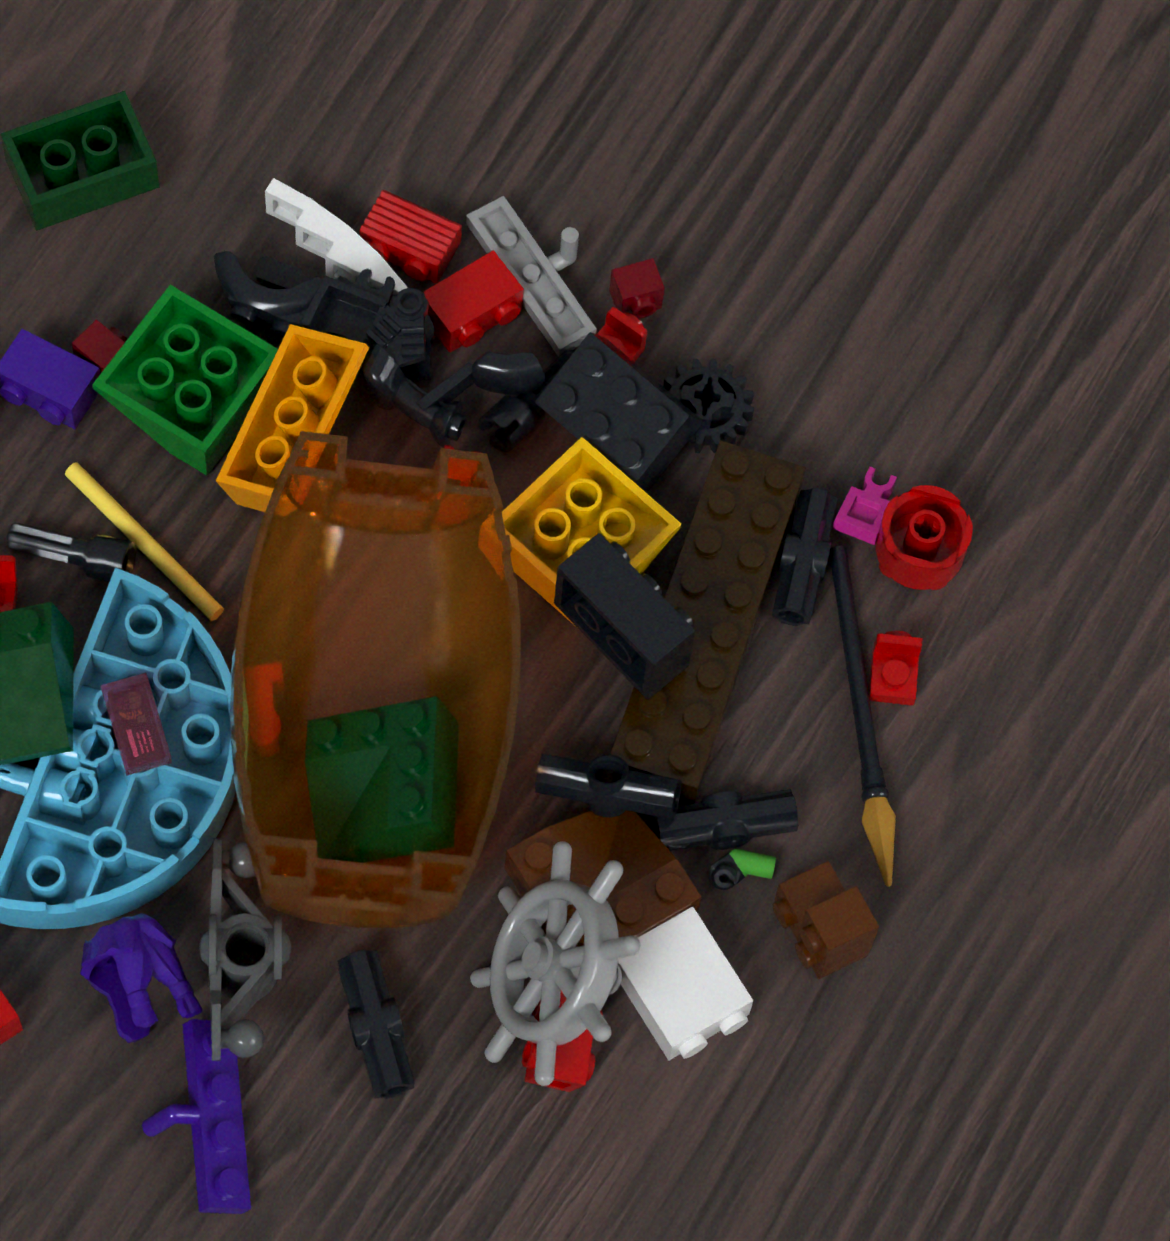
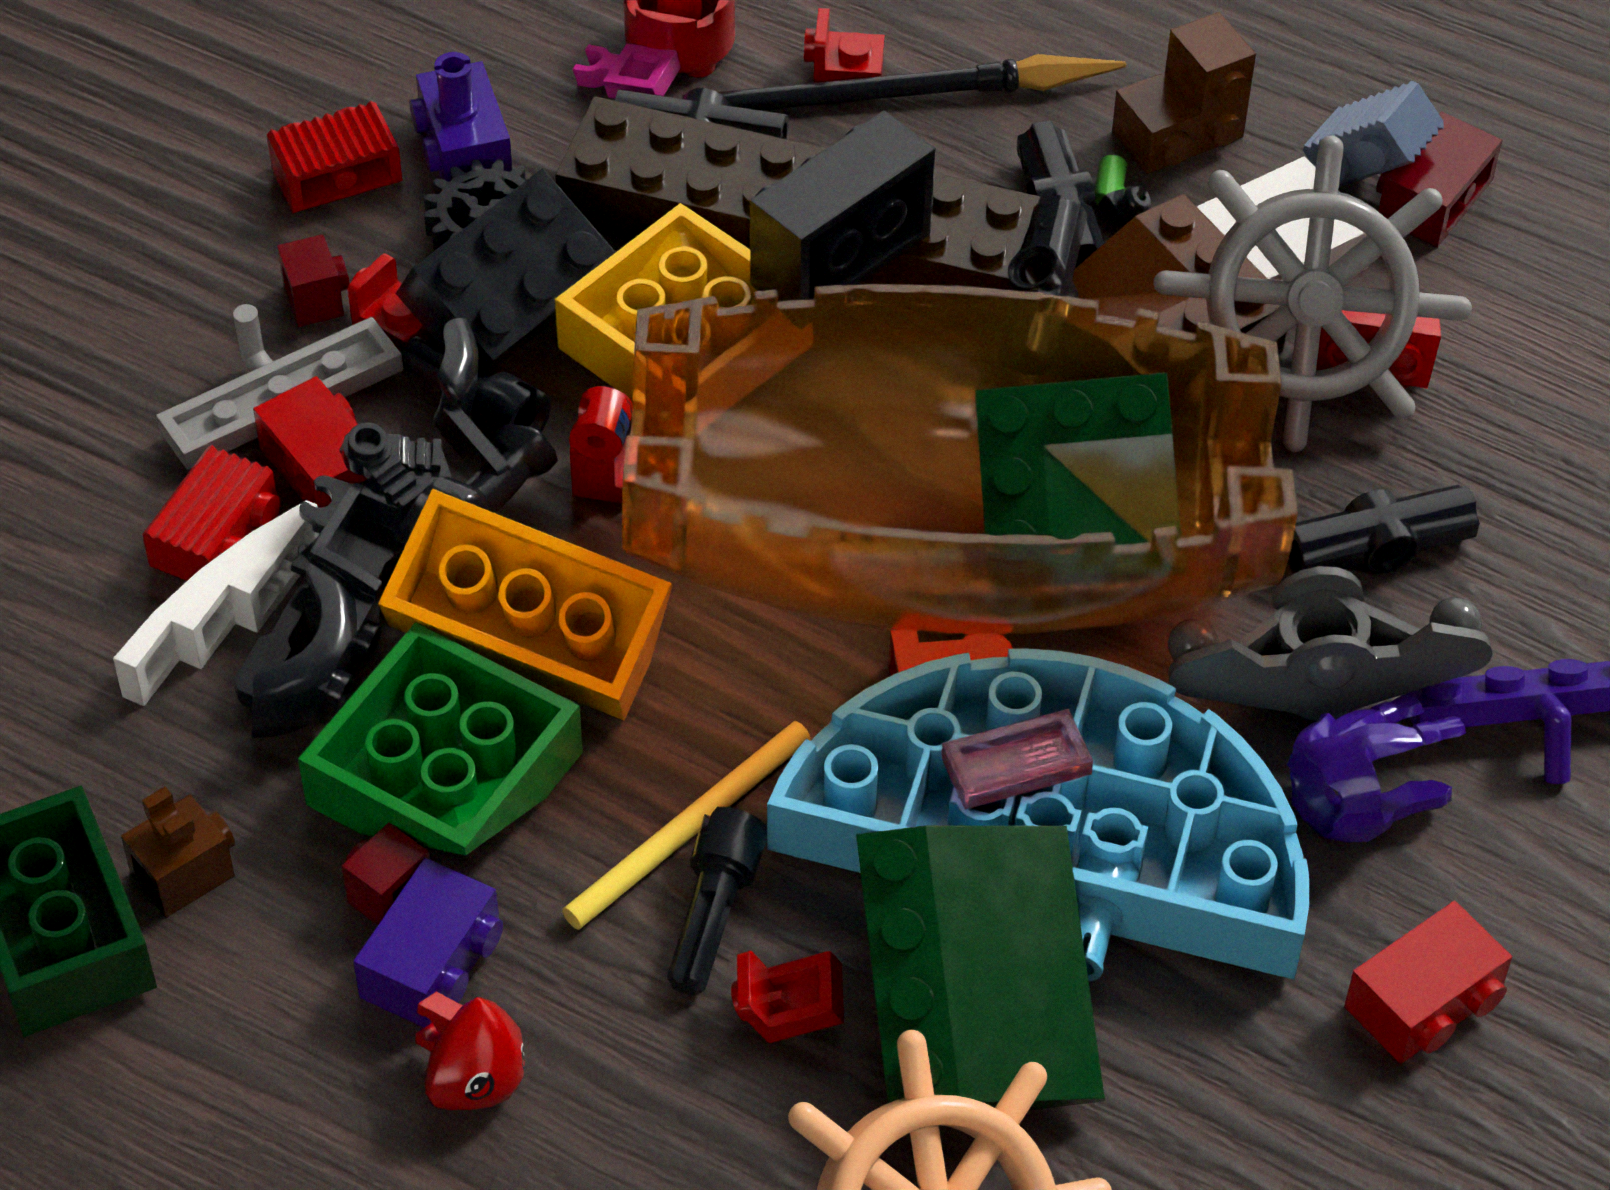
camera: 85 degrees left, 15 degrees down
(127, 232) = (178, 851): none -> reddish brown brick
(750, 1117) = (1456, 164): none -> dark red brick
(766, 300) = (334, 156): none -> red brick
(771, 1055) = (1380, 132): none -> sand blue brick
(799, 386) = (459, 117): none -> dark purple brick

